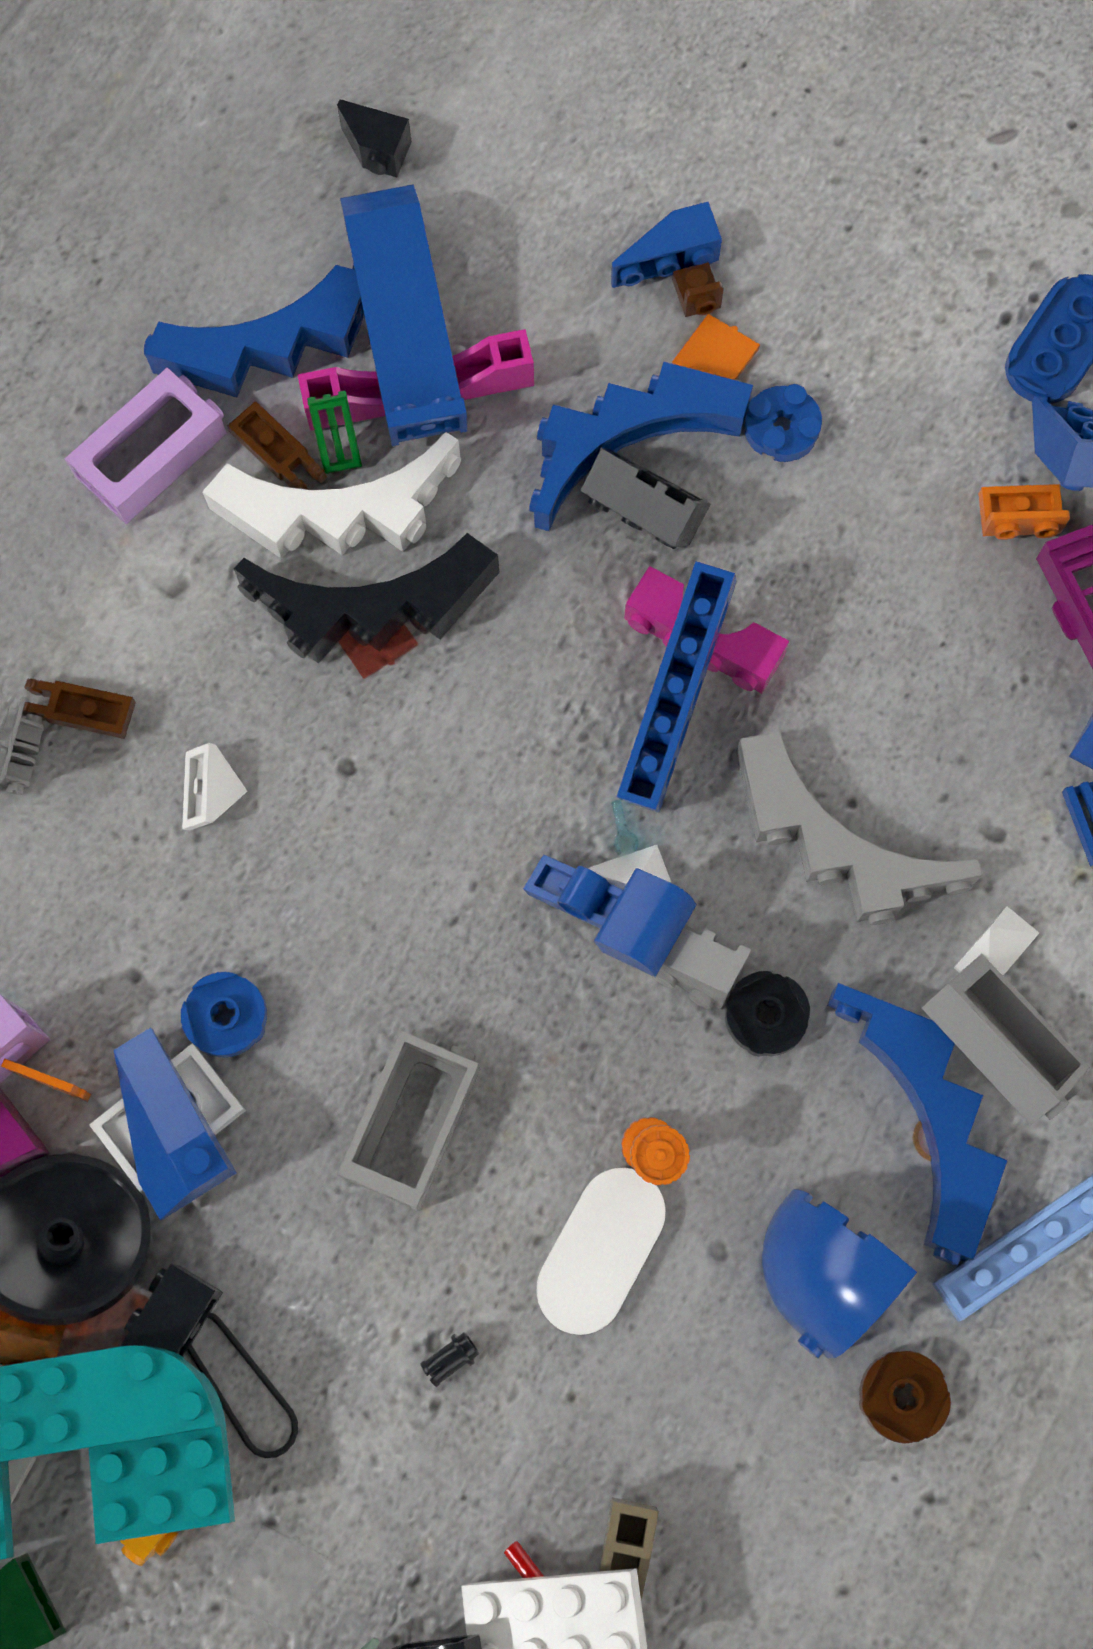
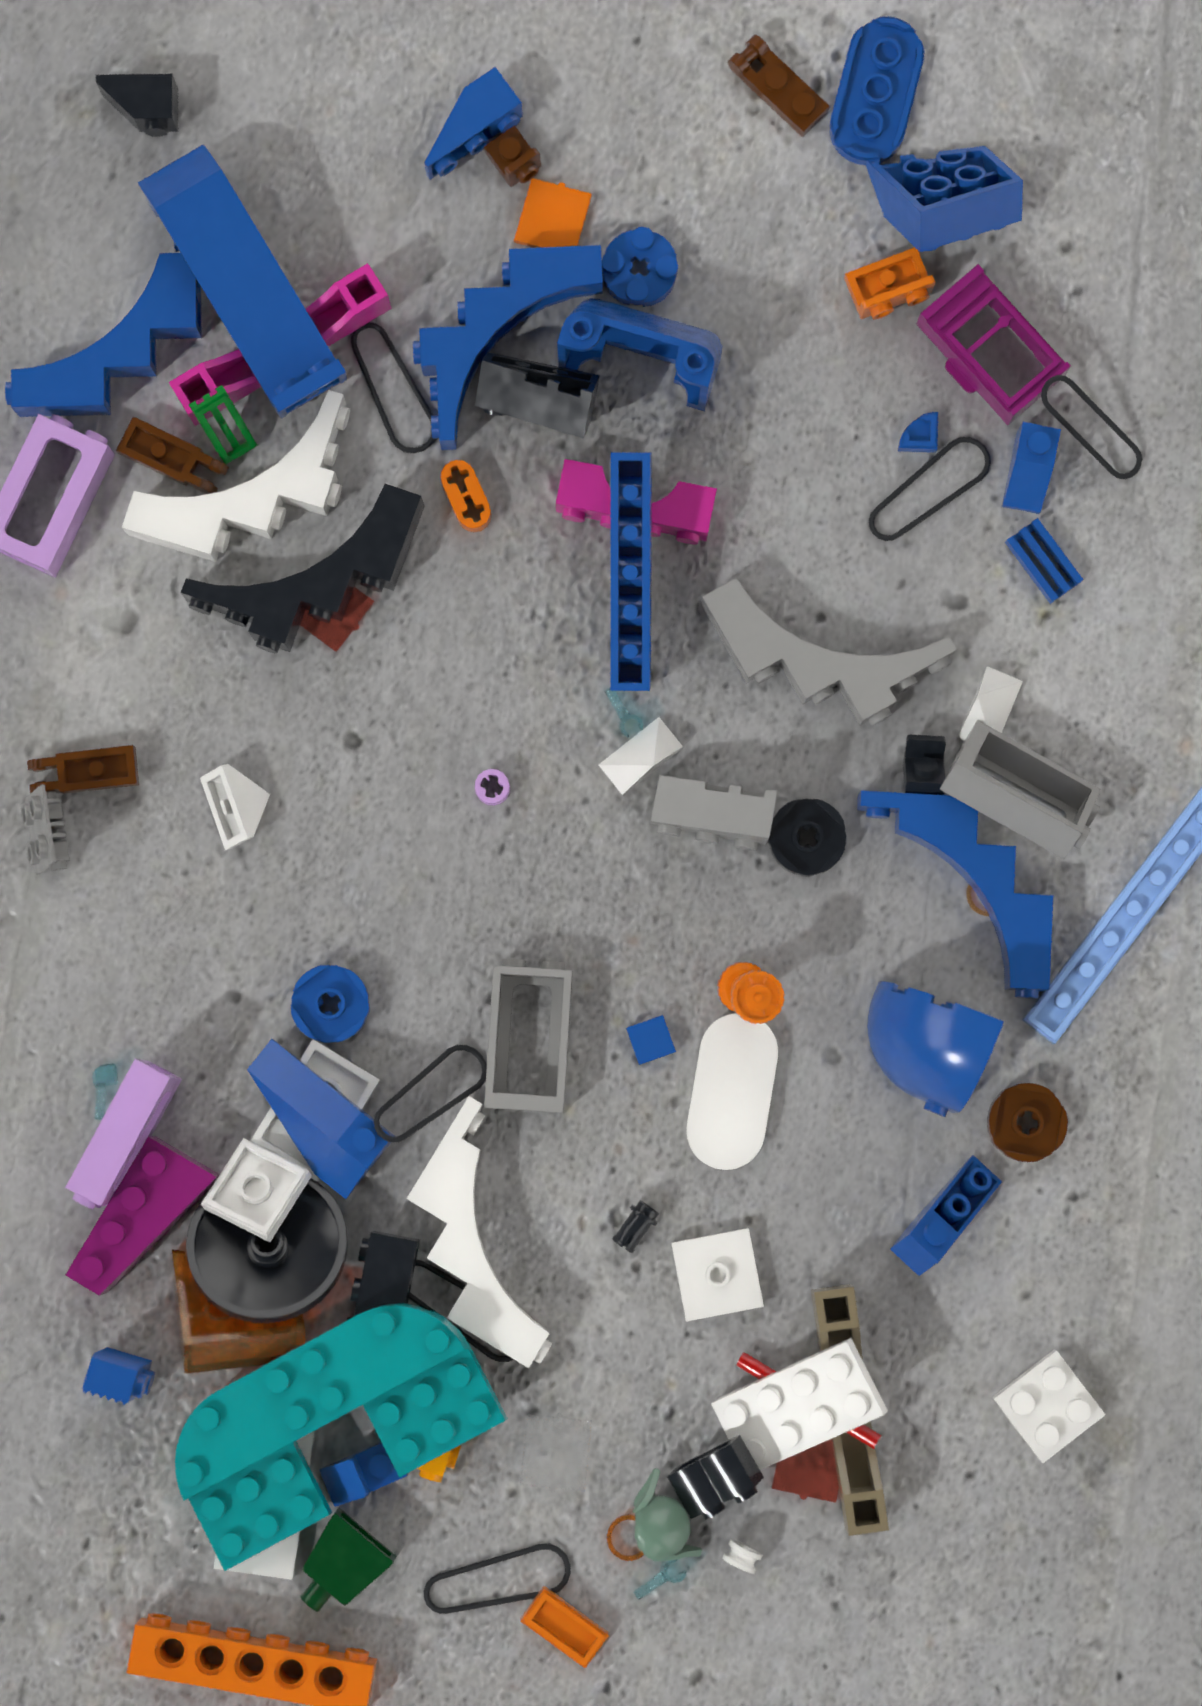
camera: 20 degrees left, 10 degrees up
(46, 1080) = (217, 1116): orange piece -> none
(58, 1525) = (359, 1475): none -> blue slope
(72, 1177) = (256, 1189): none -> white plate
(268, 1253) = (449, 1194): none -> white arch
(330, 1104) = (419, 1077): none -> black piece
(479, 856) = (502, 781): none -> lavender bush
(490, 457) = (374, 394): none -> black piece
(517, 1444) = (717, 1274): none -> white plate
(534, 575) = (473, 492): none -> orange beam
(535, 1166) = (650, 1040): none -> blue tile
(634, 923) = (668, 798): blue plate -> none
(714, 458) = (600, 322): none -> blue windscreen
(784, 1469) = (946, 1216): none -> blue slope
(912, 979) = (924, 764): none -> black bracket
(970, 305) = (779, 86): none -> reddish brown plate
(1008, 661) = (921, 435): none -> blue tile
(1061, 686) = (917, 474): none -> black piece

